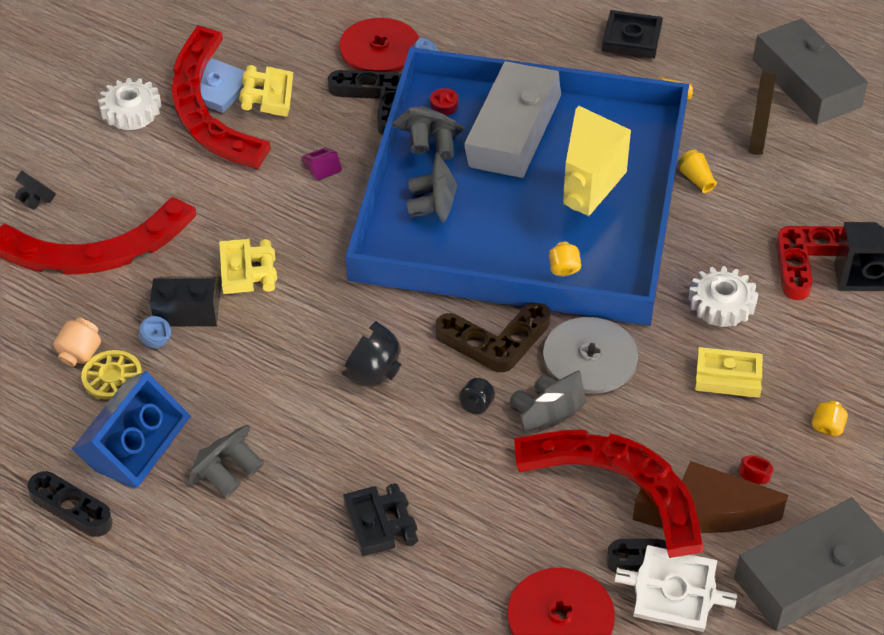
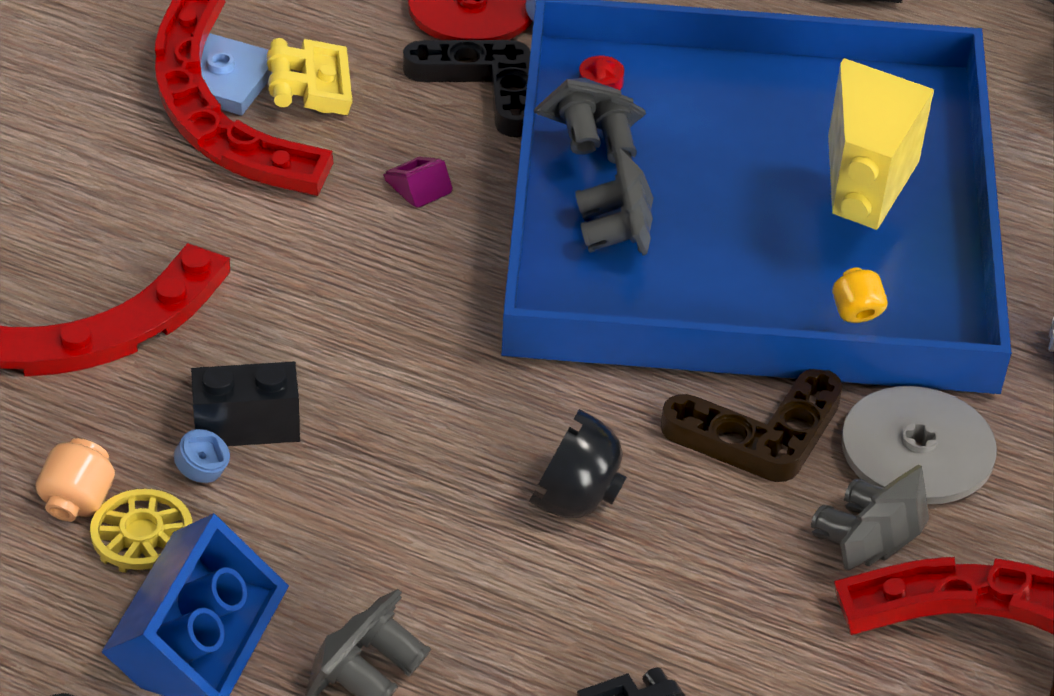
camera: 10 degrees left, 5 degrees down
(130, 104) = (89, 108): white gear -> none
(237, 268) = (319, 345): light yellow plate -> none
(477, 395) = (755, 519): black piece -> none
(513, 119) = (722, 94): light grey brick -> none
(696, 169) = (1015, 160): yellow cone -> none

